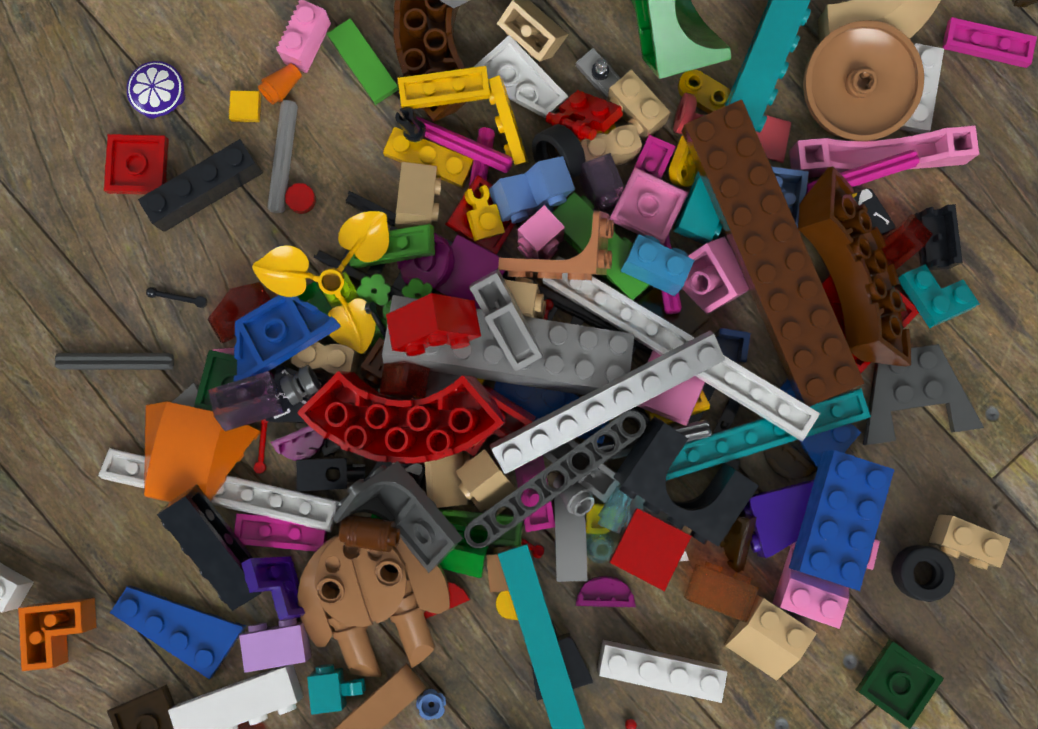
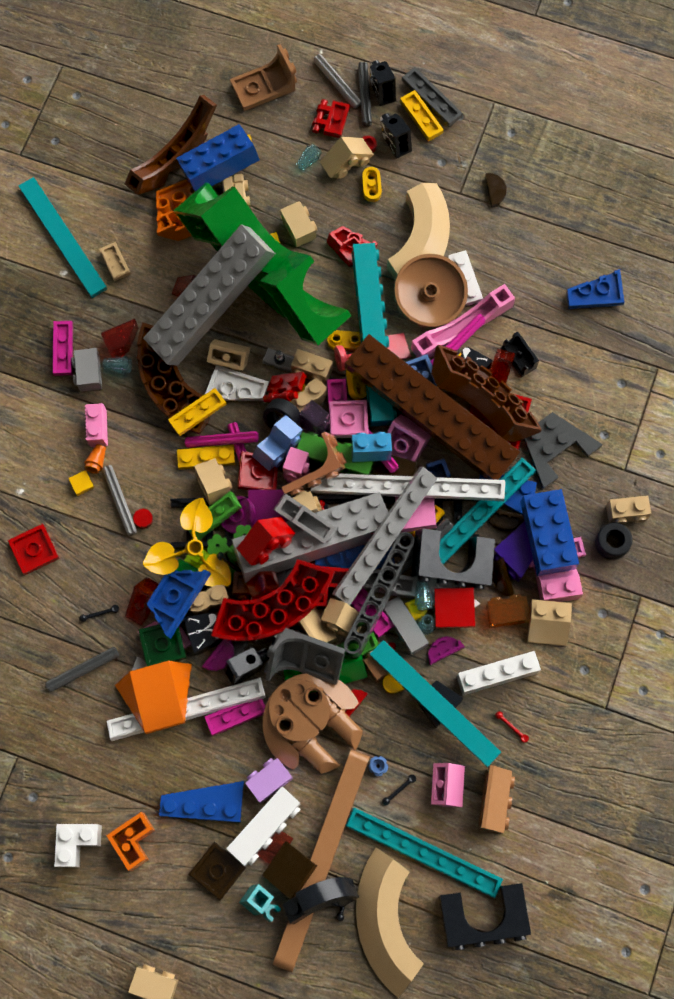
camera: 30 degrees left, 10 degrees down
(155, 89) = (22, 500): dish -> none
(200, 186) = (81, 540): black brick -> none
(209, 544) = (203, 740): black brick -> none
(246, 401) = (179, 643): clear purple brick -> none
(260, 466) = (202, 685): red hinge -> none
(280, 578) = (247, 737): dark purple plate -> none
(300, 385) = (202, 623): dark grey wheel -> none
(330, 690) = (314, 788): teal brick -> none
(362, 61) = (137, 422): bright green tile -> none
(369, 533) = (290, 678): reddish brown head -> none
(413, 129) = (190, 444): black pin -> none
(483, 219) = (259, 473): yellow plate -> none
(506, 121) = (241, 413): yellow plate -> none
(576, 498) = (397, 601): light grey cone -> none
(899, 684) = (635, 609): dark green plate -> none
(931, 301) = (537, 390): teal plate -> none
(989, 42) = (488, 234): dark pink plate -> none

